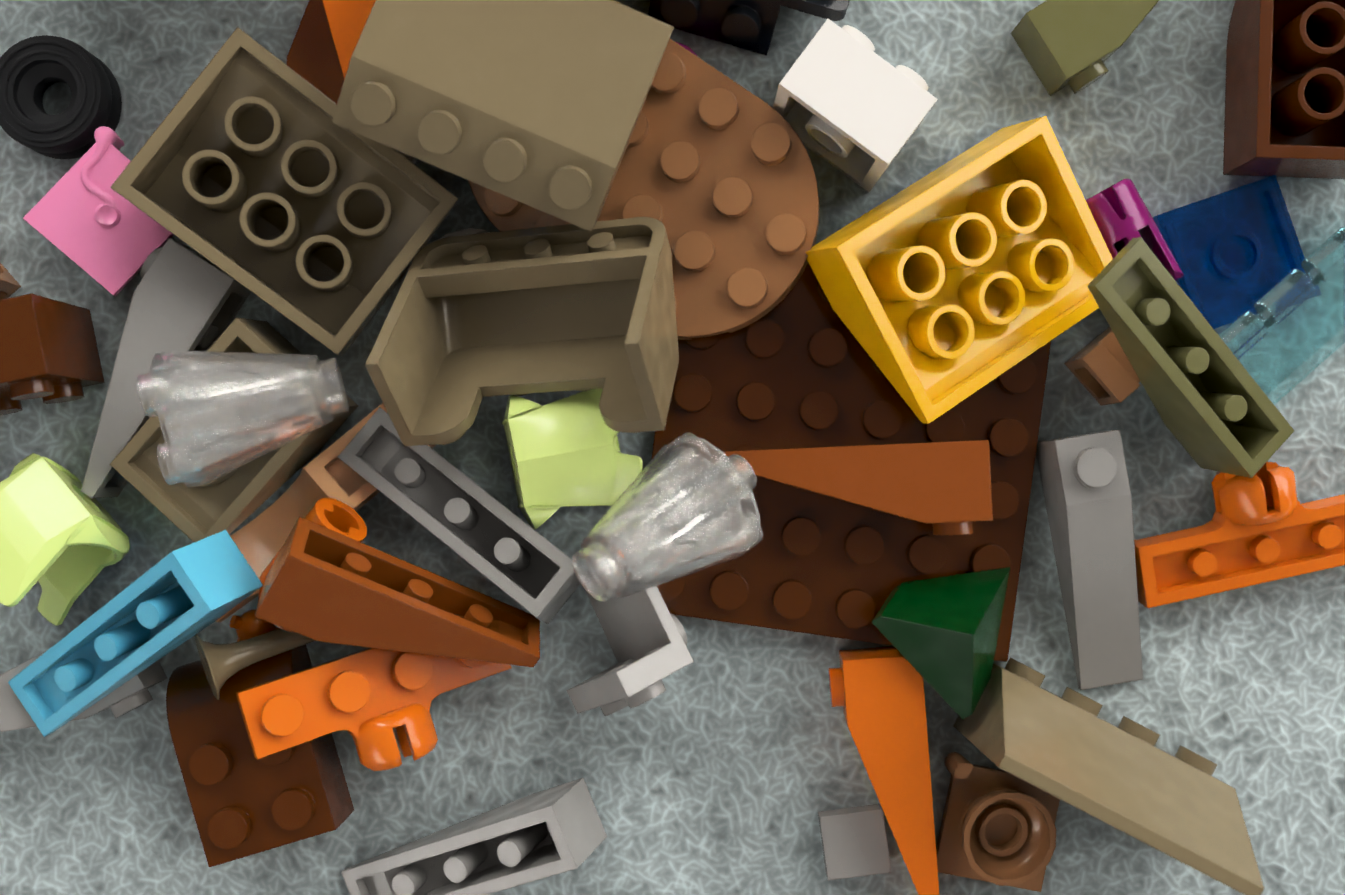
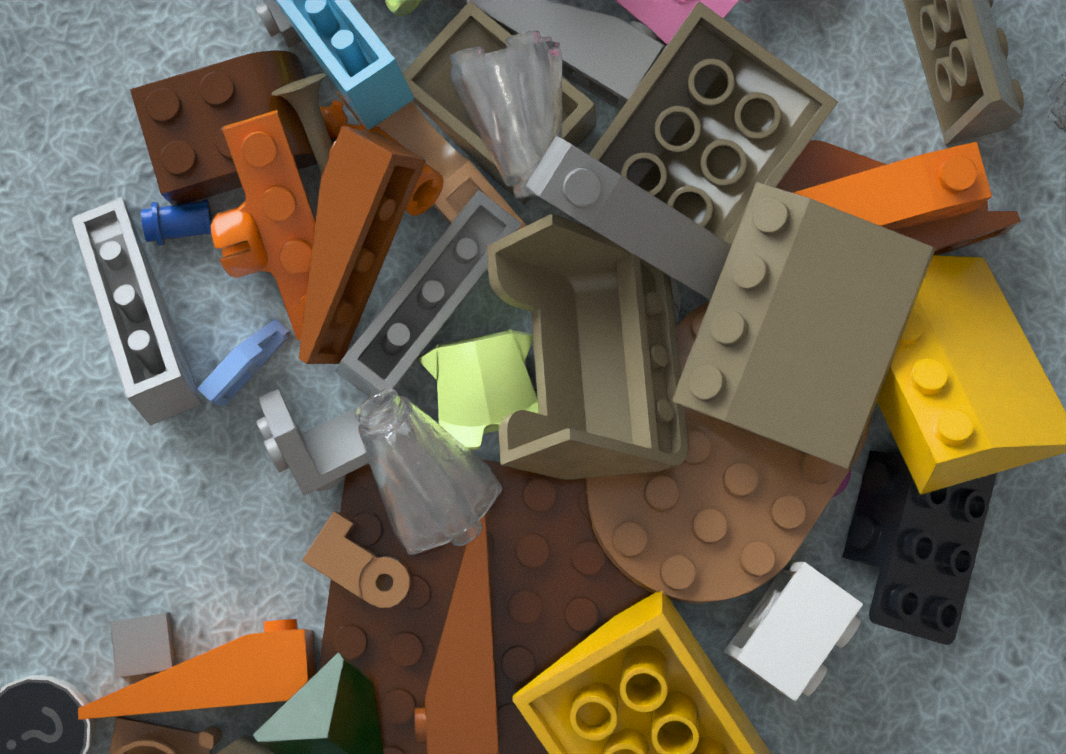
camera: 85 degrees right, 5 degrees down
(368, 274) = (629, 216): none -> light grey slope
(369, 809) = (176, 221): none -> blue pin
(537, 730) = (243, 363): none -> light blue tile
(786, 582) = (373, 578): none -> medium nougat leg

